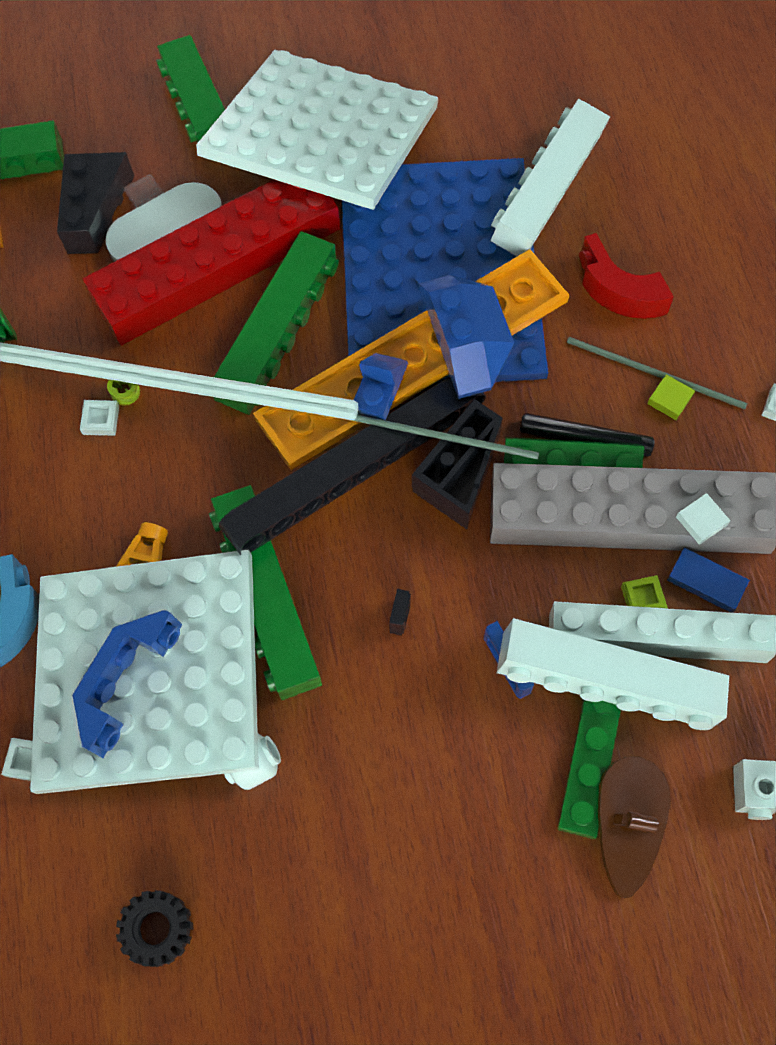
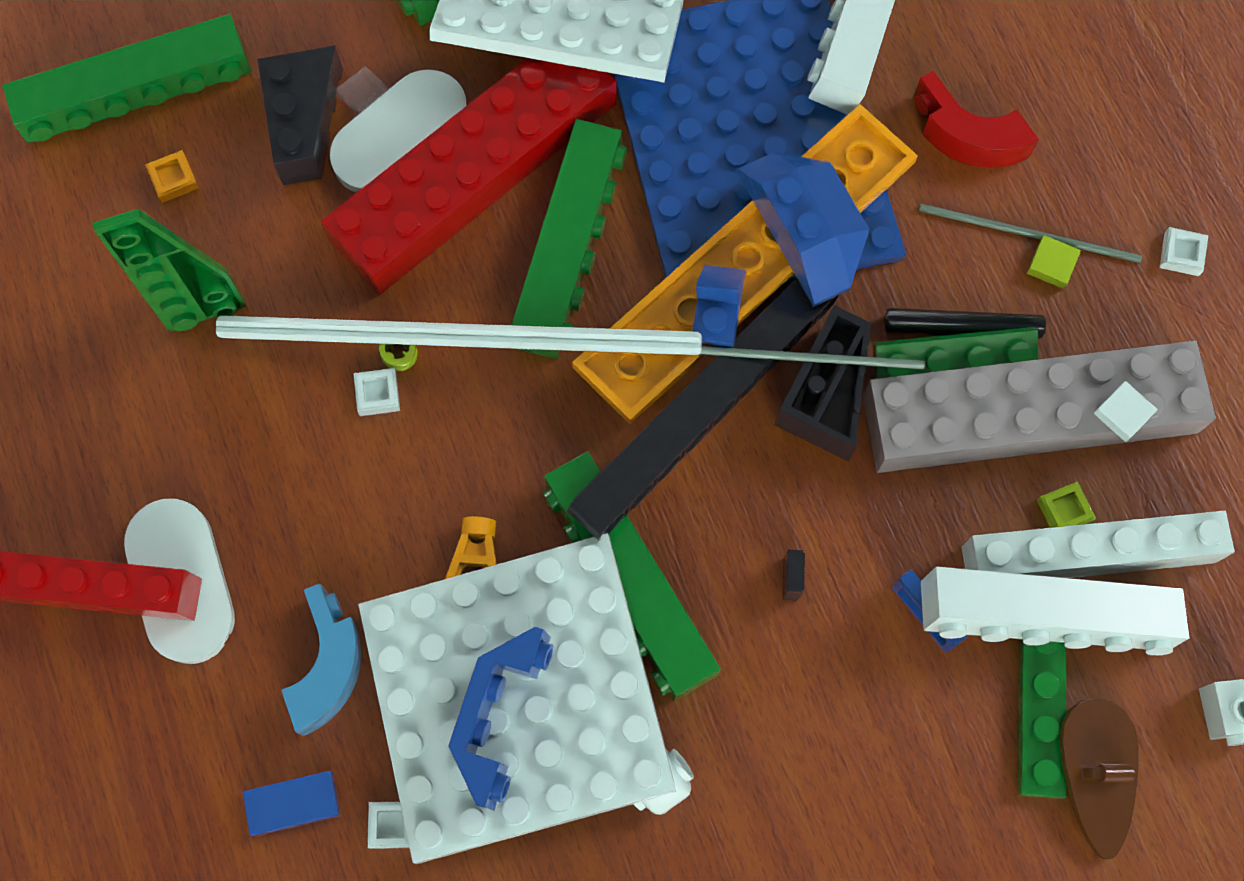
camera: 15 degrees left, 5 degrees up
(708, 580) = (1135, 477): blue tile -> none

